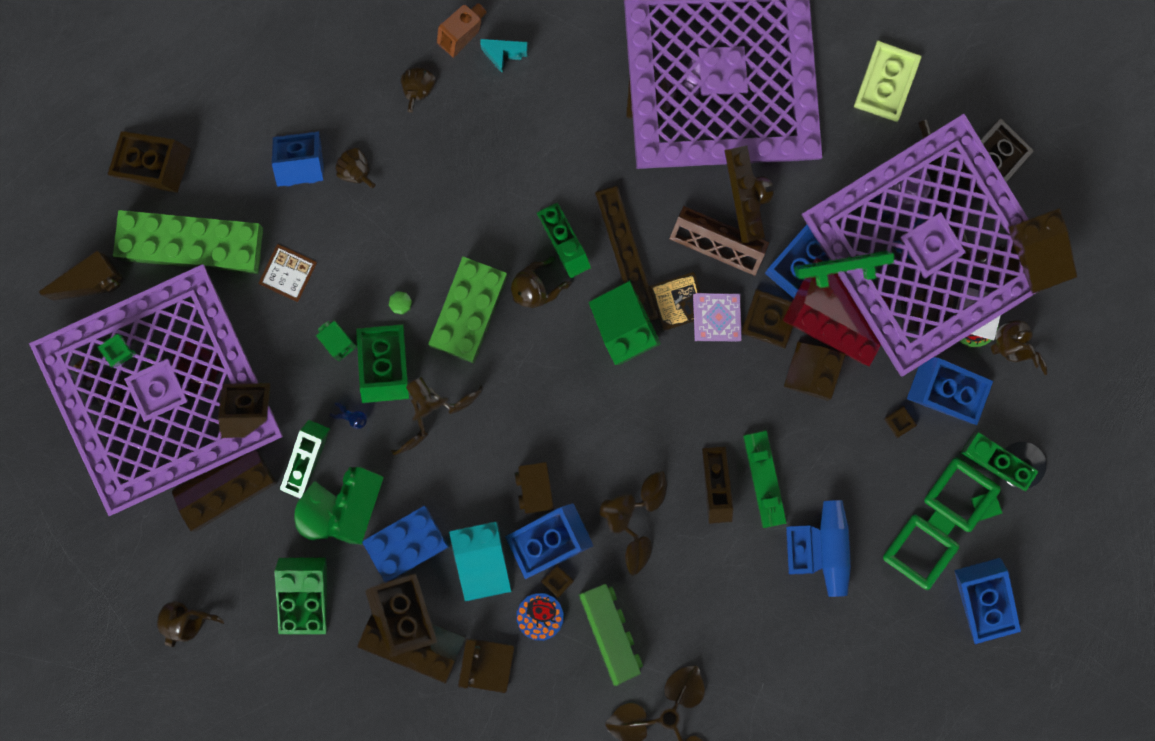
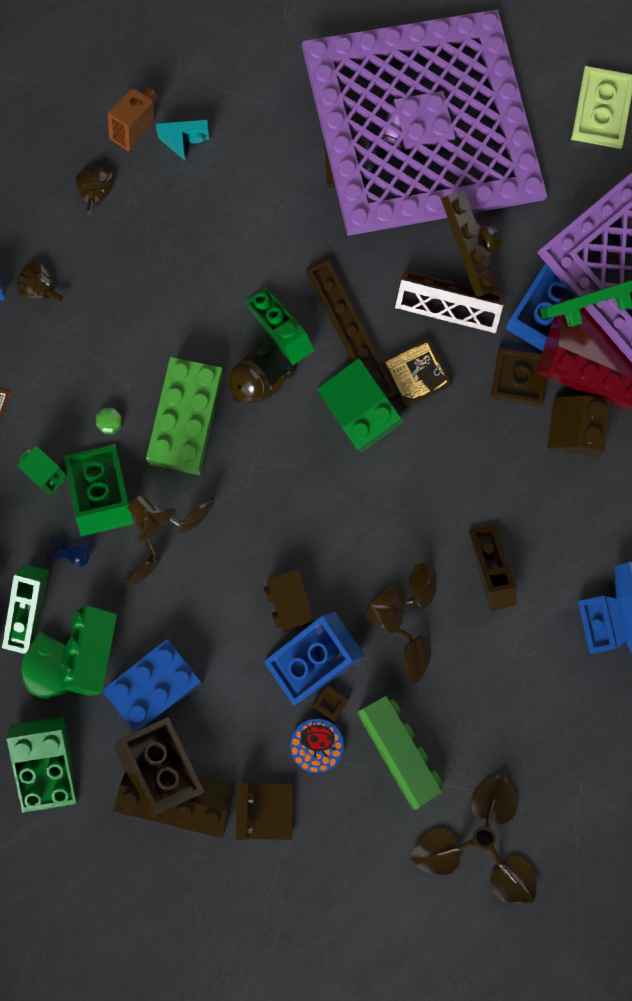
camera: 10 degrees left, 5 degrees down
(480, 561) = (240, 693): teal slope -> none
(717, 317) = (461, 383): lavender tile -> none
(764, 479) = (544, 553): green hinge -> none

